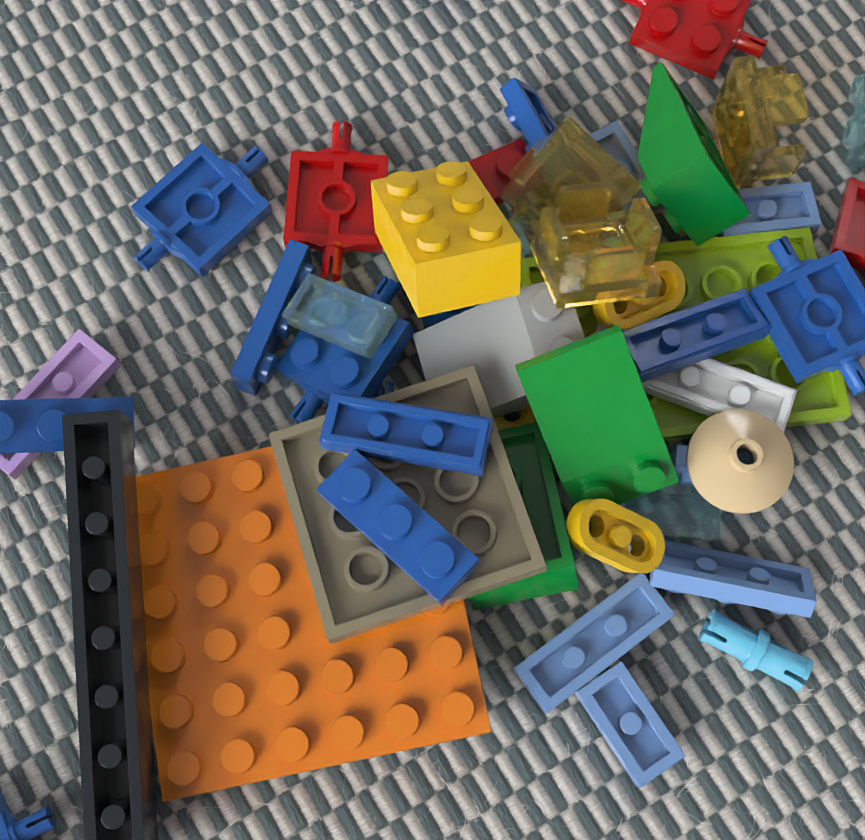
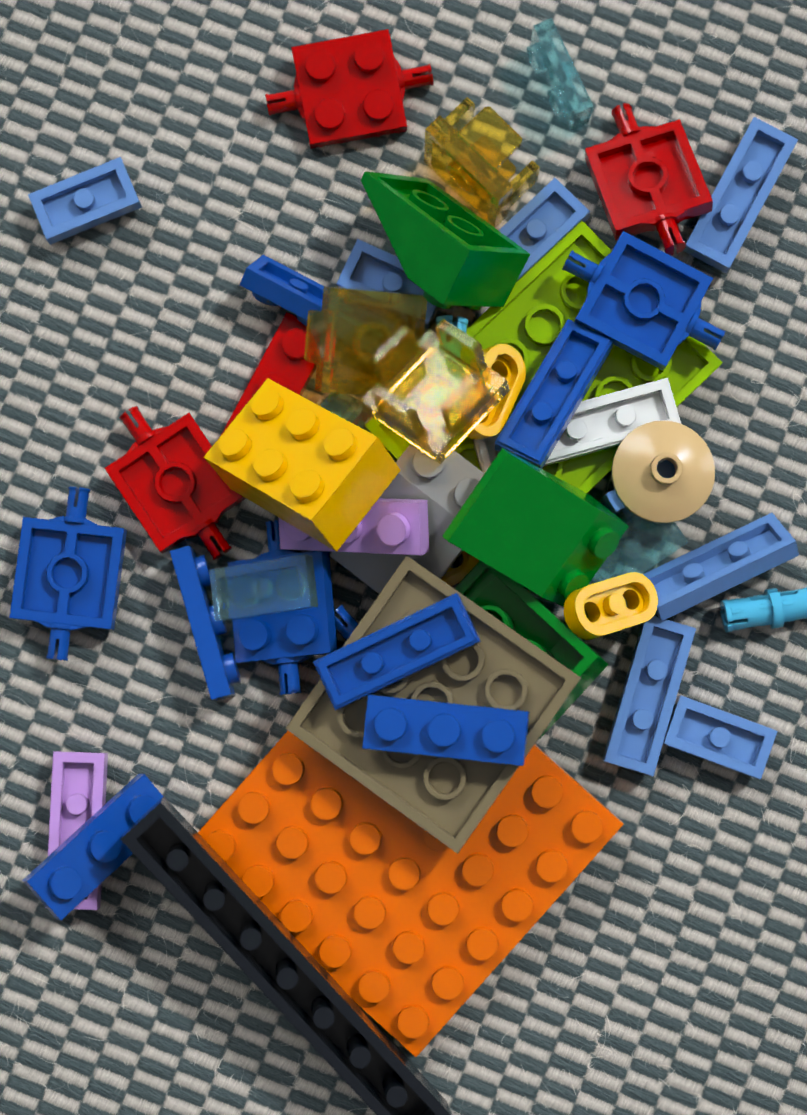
camera: 35 degrees left, 10 degrees up
(469, 331) = (387, 528): none -> lavender plate

